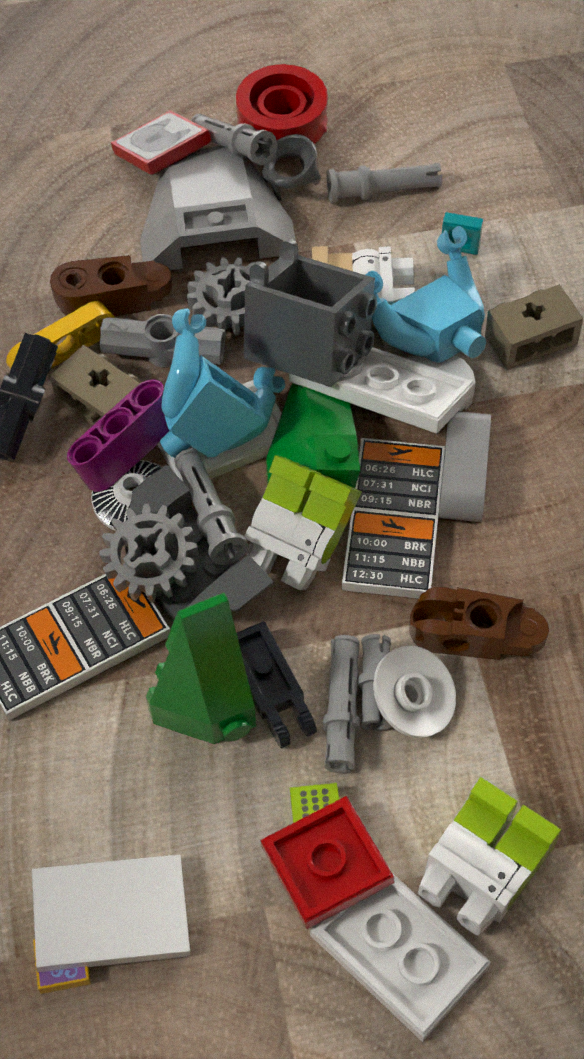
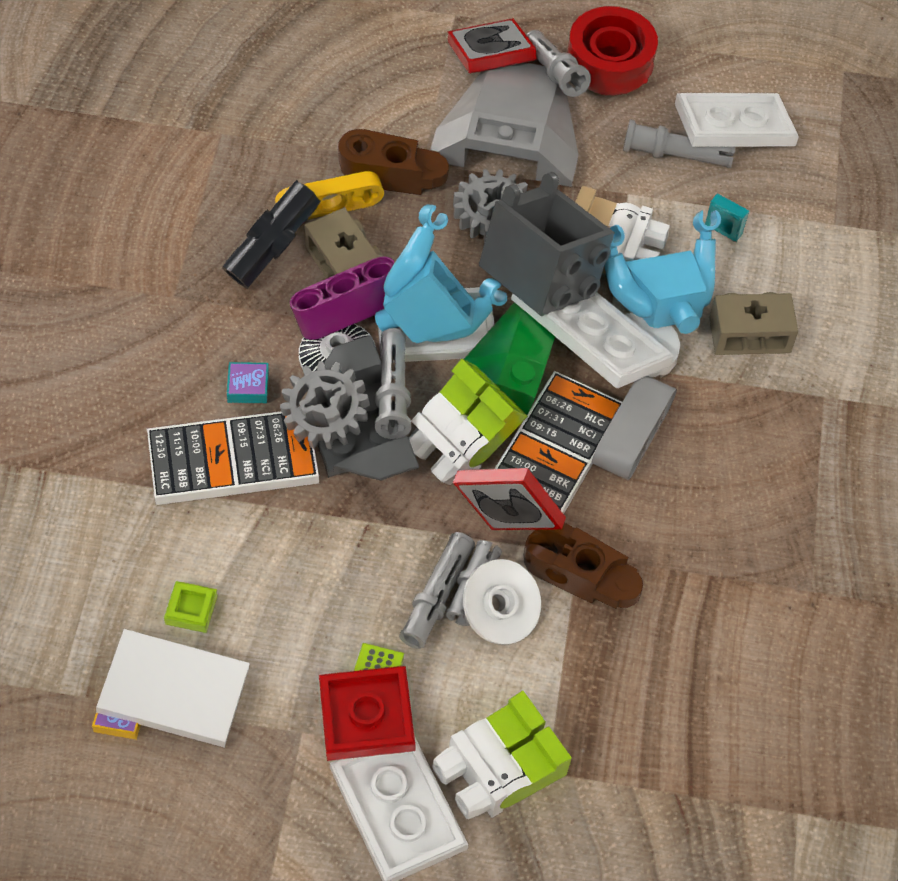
camera: 15 degrees right, 0 degrees up
(54, 557) = (247, 382): none -> tile
(91, 816) = (190, 607): none -> lime tile
(156, 339) = (403, 219): light grey piece -> none
(204, 678) = (321, 523): green wedge -> none
(273, 682) = (383, 547): black hinge -> none
(297, 146) = (605, 87): dark grey piece -> none
(381, 582) = (509, 499): none -> tile
(427, 138) = (735, 119): none -> white tile

